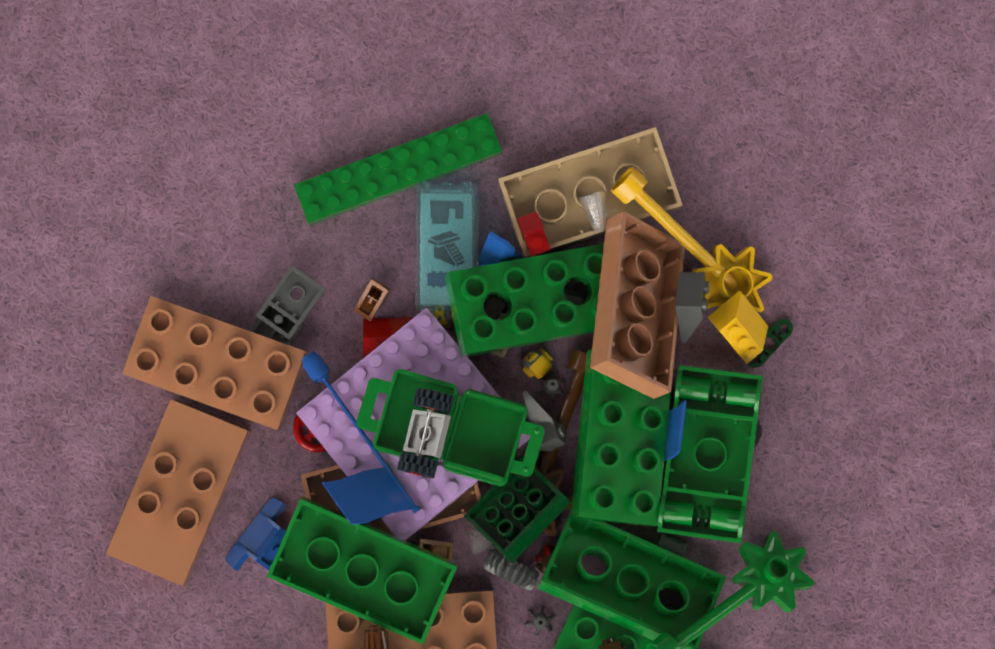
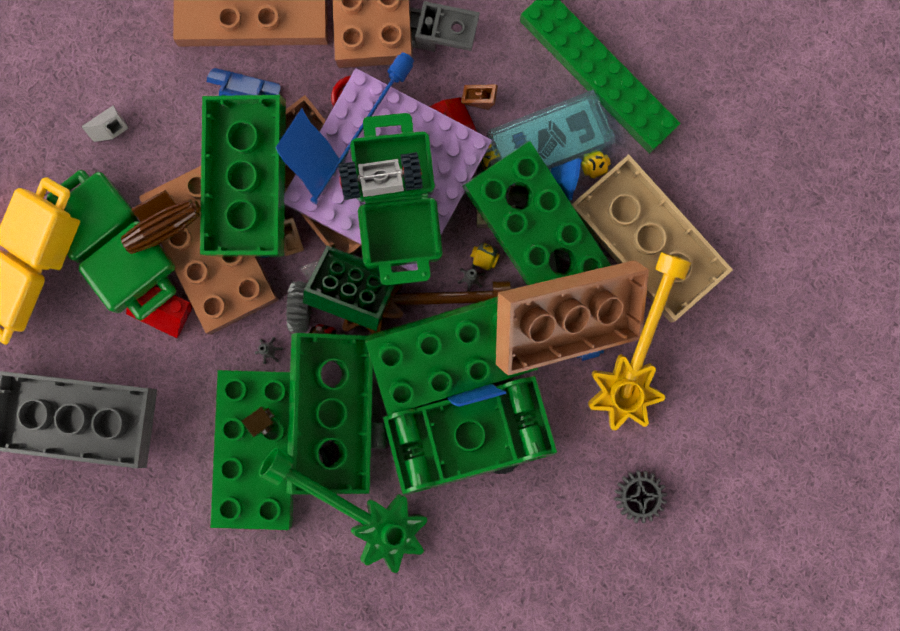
camera: 65 degrees right, 0 degrees up
(491, 213) = (595, 164): none -> yellow head
(534, 234) = (594, 203): red slope -> none
(540, 415) = (431, 291): dark grey slope -> none
(595, 209) = (638, 247): clear piece -> none
(691, 302) = (594, 362): dark grey slope -> none
(741, 326) = (592, 416): yellow slope -> none
(784, 336) = (590, 455): dark green beam -> none
(829, 309) = (642, 514): none -> dark grey gear

